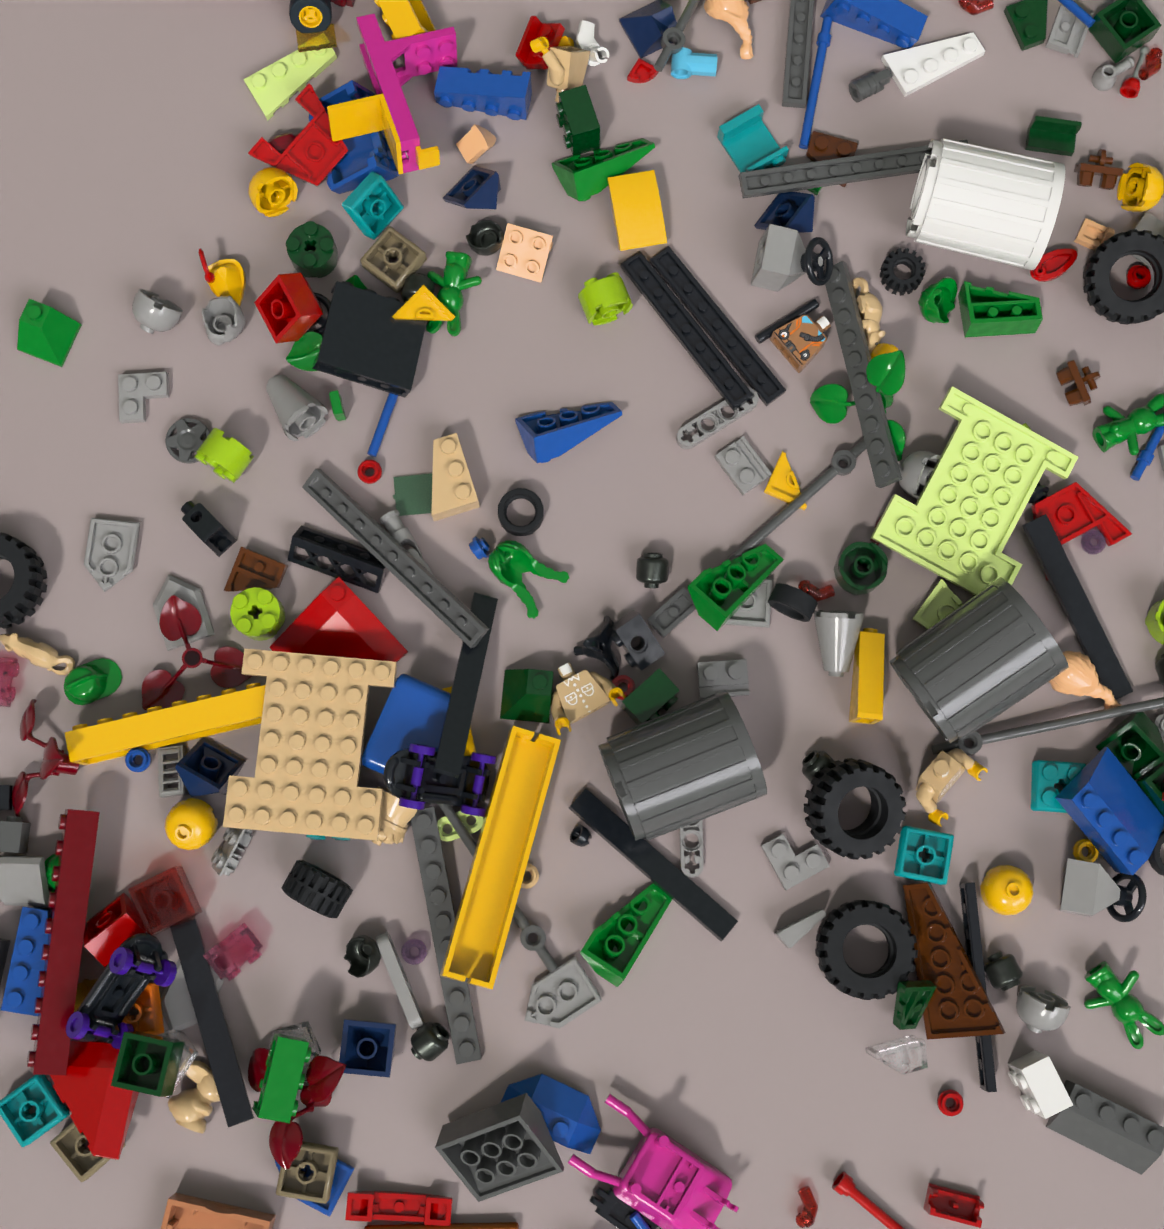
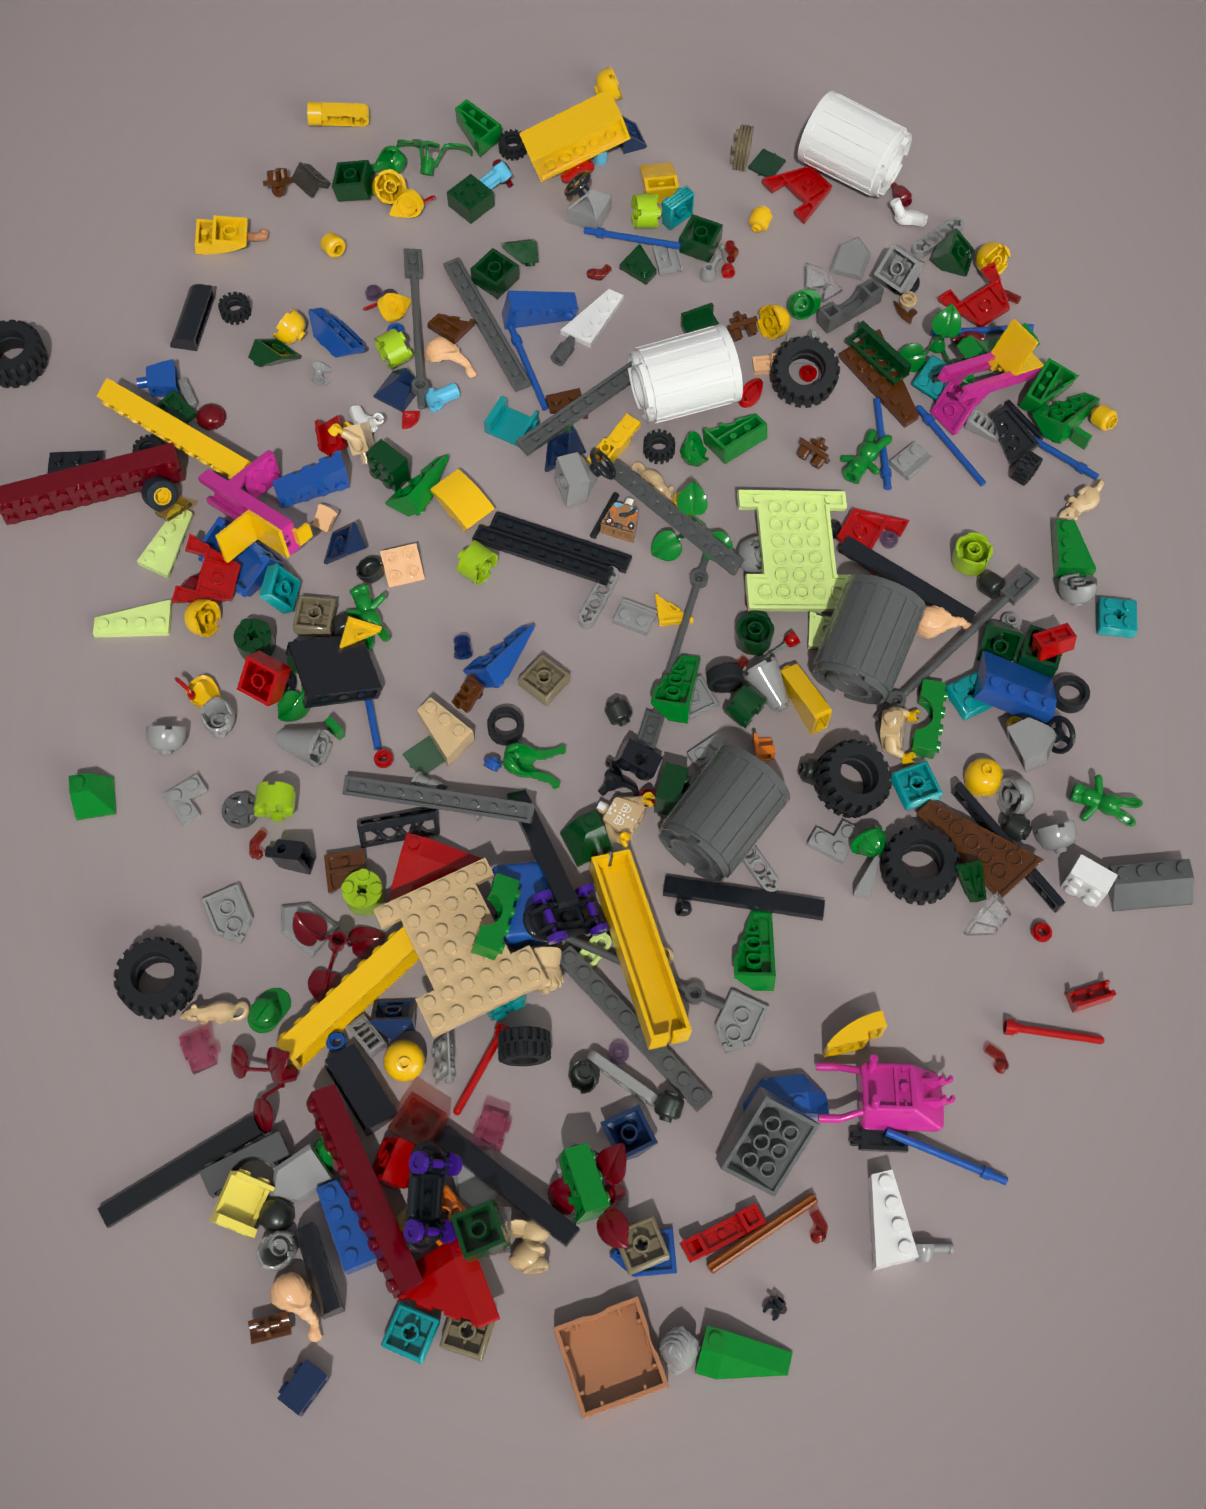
camera: 30 degrees left, 15 degrees down
(130, 826) = (360, 1089): none -> black brick
(178, 490) = (254, 851): none -> clear red arm
(207, 154) = (139, 621): none -> yellowish green wing
(309, 854) = (479, 1070): none -> red piece
(387, 717) = (489, 937): none -> green arch
(501, 452) = (469, 693): none -> reddish brown hips
(530, 391) = (462, 647): none -> clear blue bush
(602, 470) = (544, 669): none -> dark tan brick
(669, 1093) = (856, 1035): none -> yellow slope
(784, 706) = (763, 748): none -> orange panel
(795, 648) = (745, 705): none -> dark green brick
(829, 892) = (870, 842): none -> green piece
(859, 236) = (618, 439): none -> yellow slope
(897, 598) = (790, 640): none -> hinge
(1011, 763) = (931, 698): none -> green arch
(1026, 936) = (1015, 796): none -> light grey cylinder

